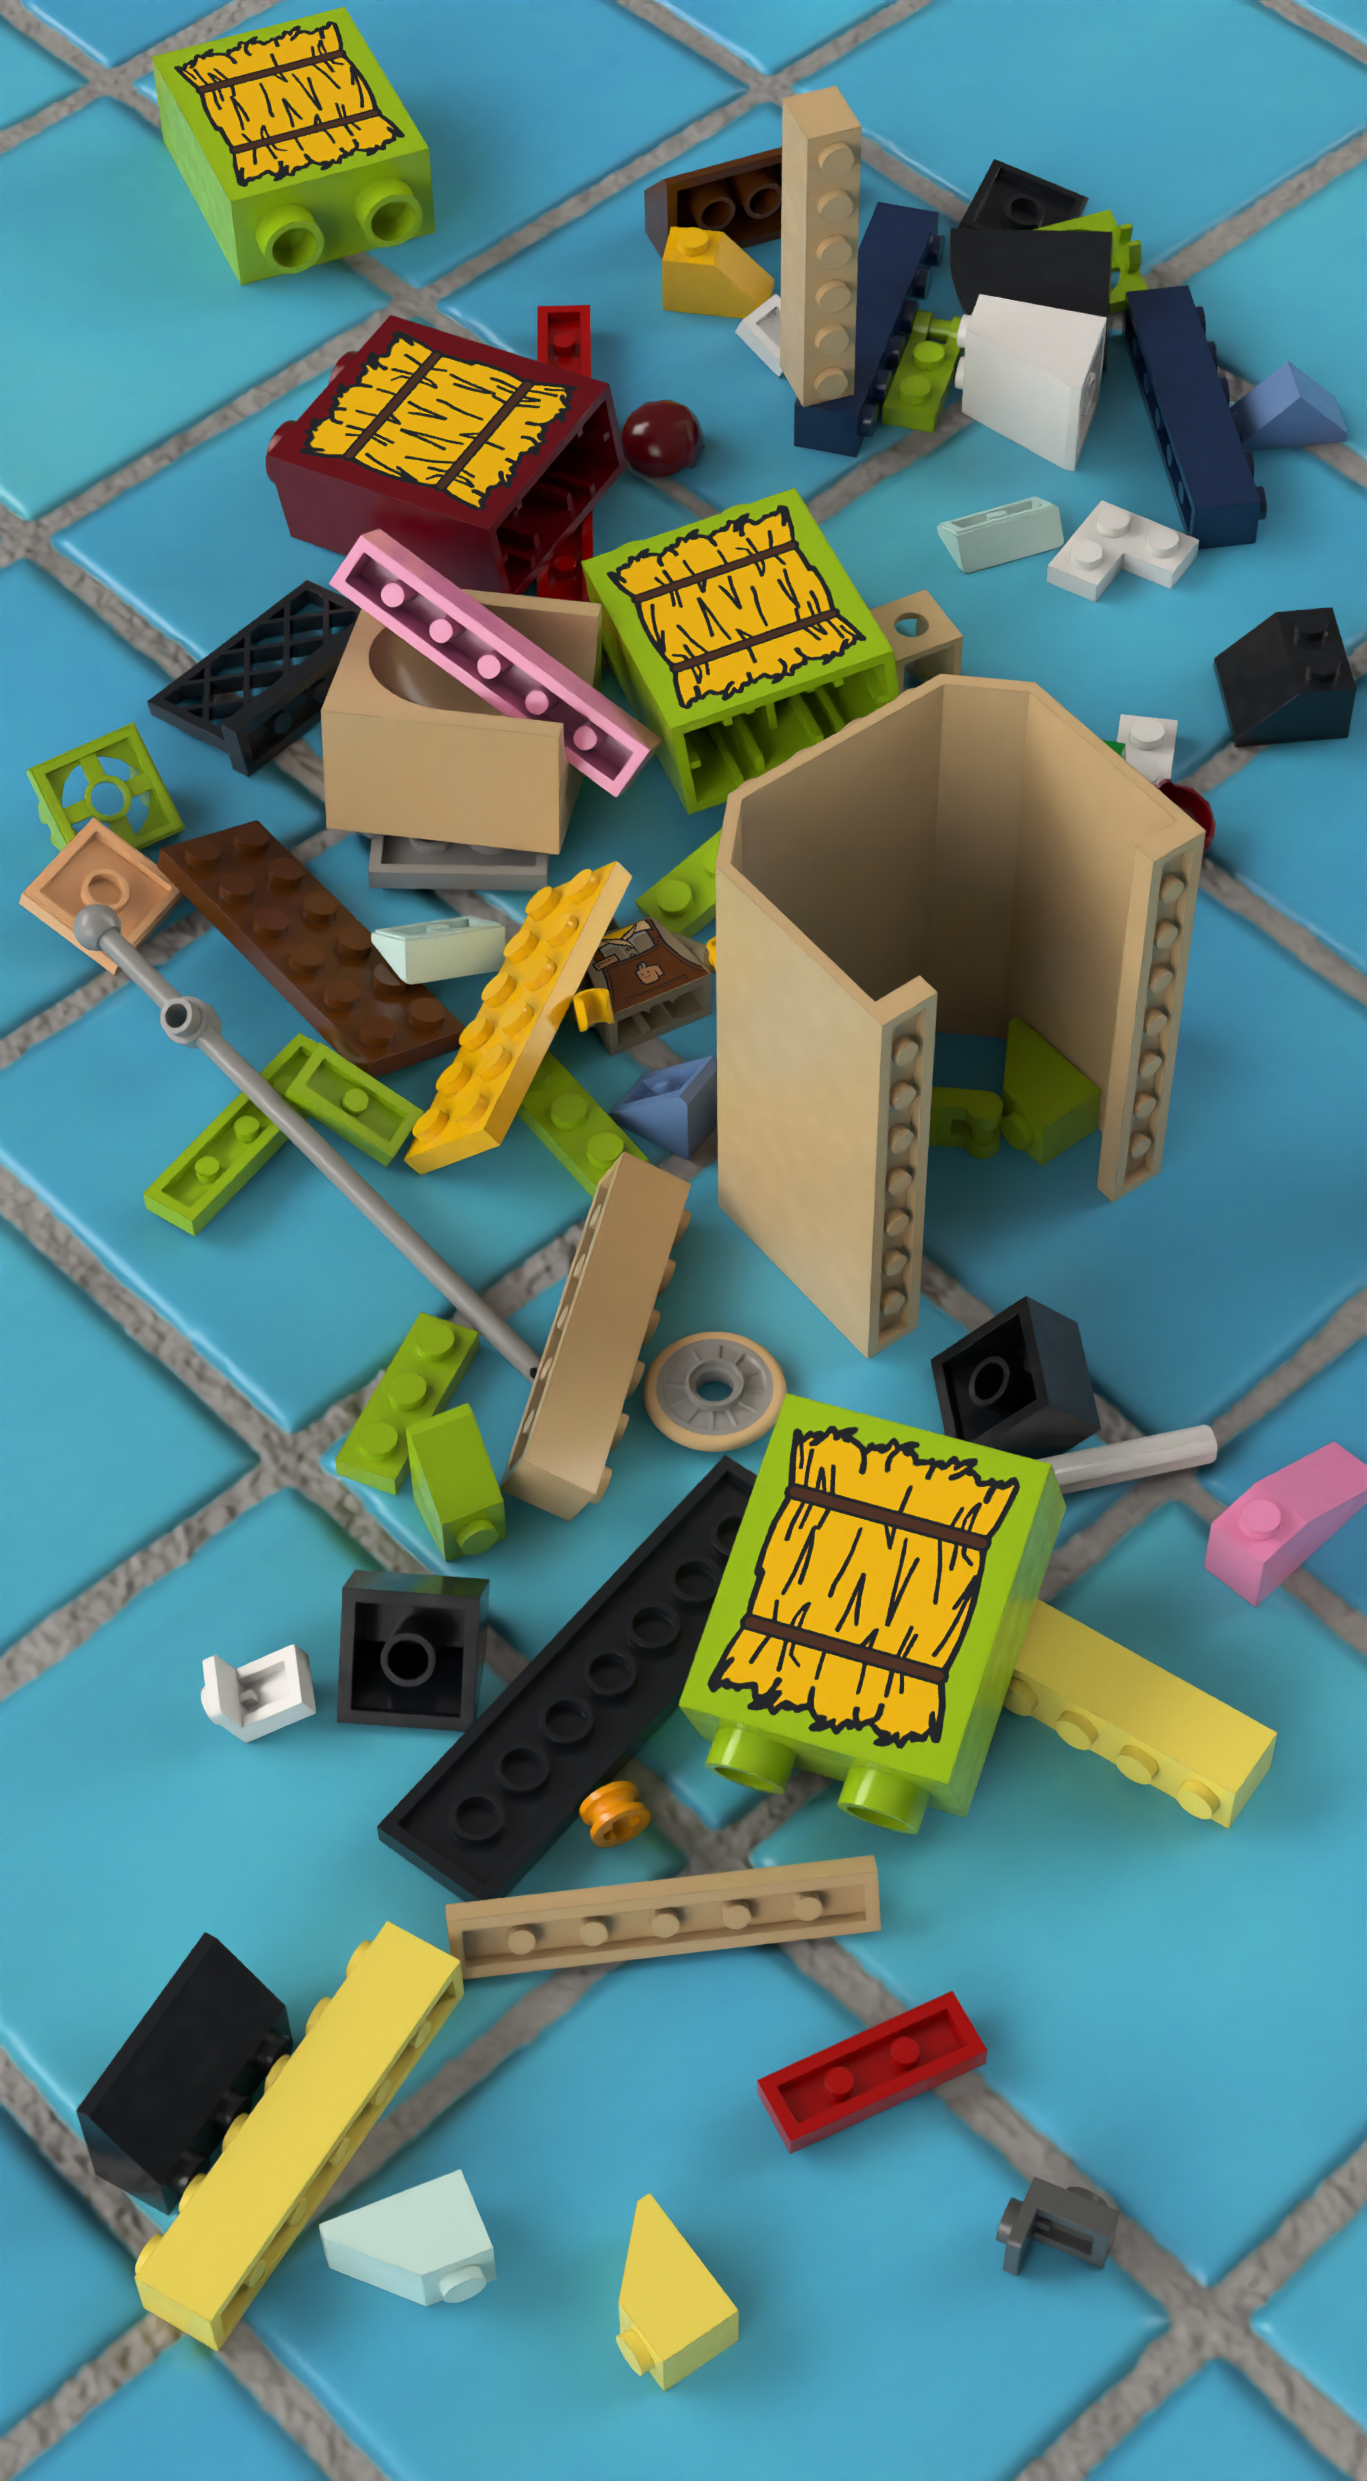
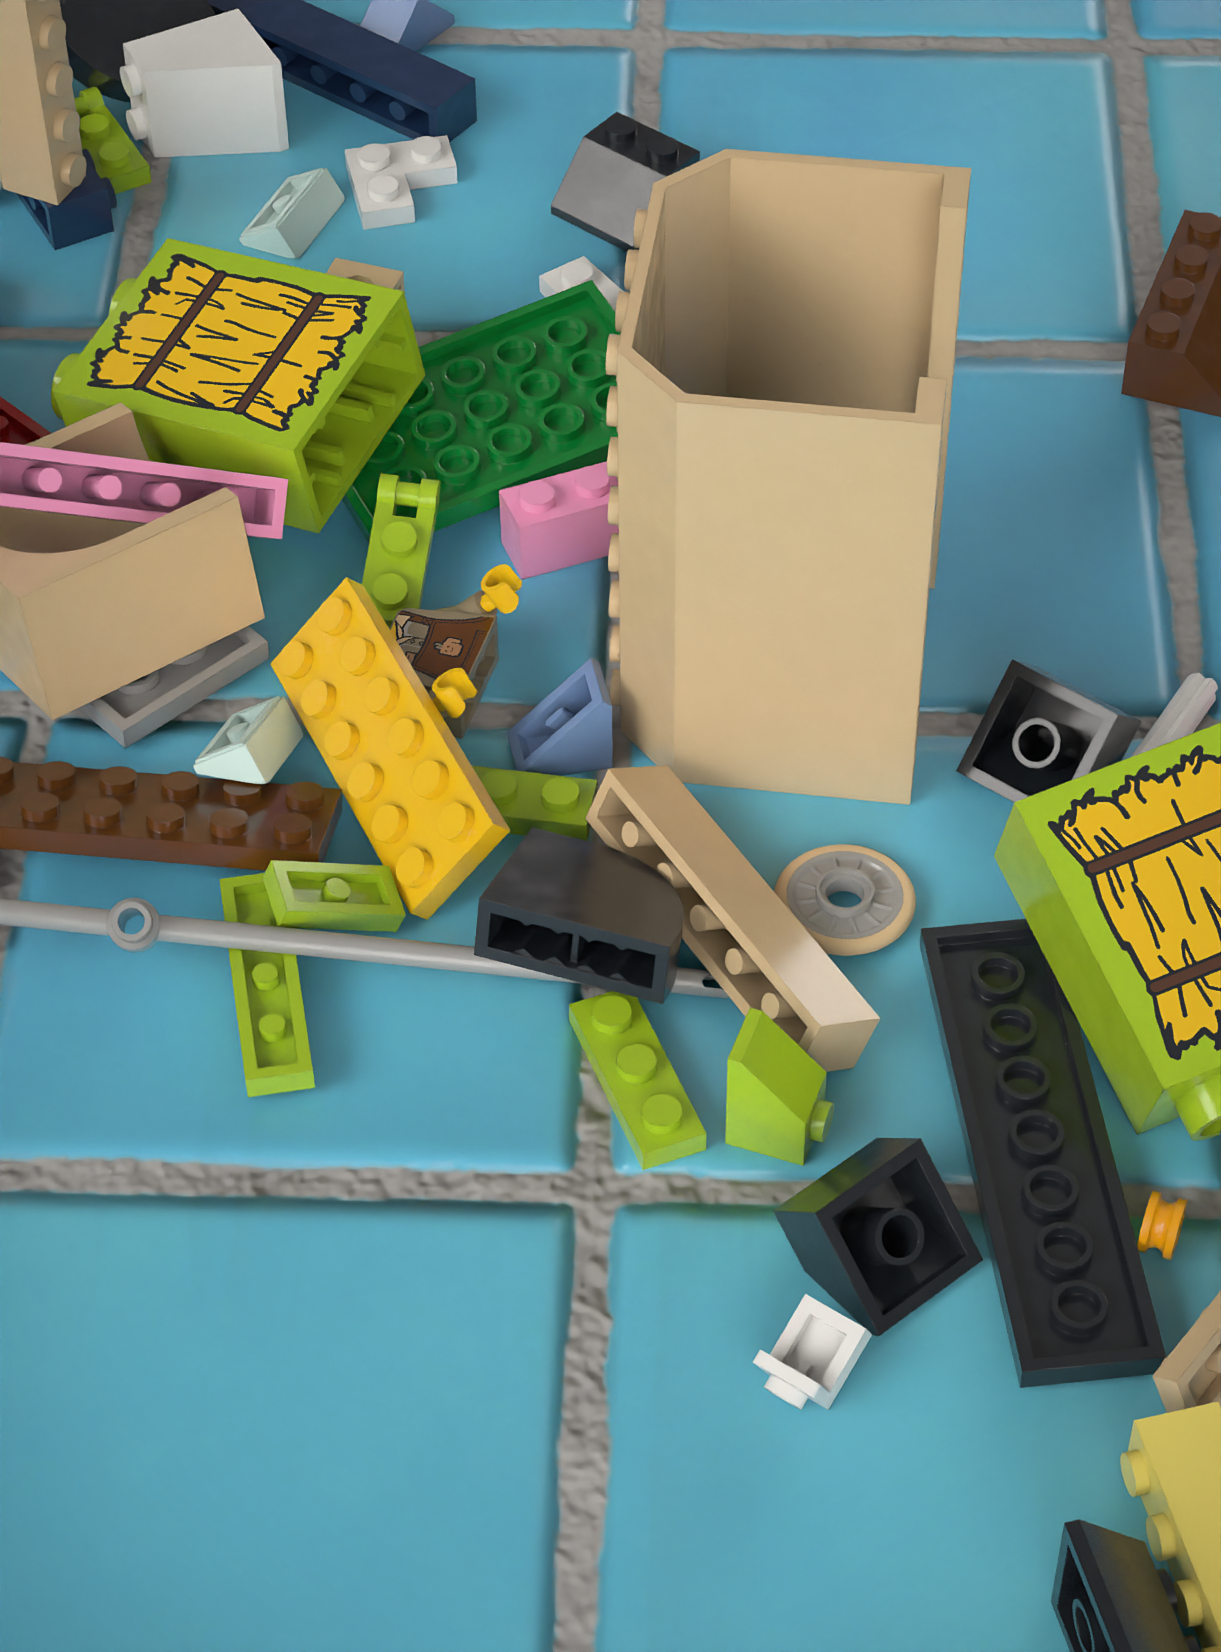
camera: 45 degrees left, 5 degrees down
(487, 1249) = (583, 916): none -> black brick

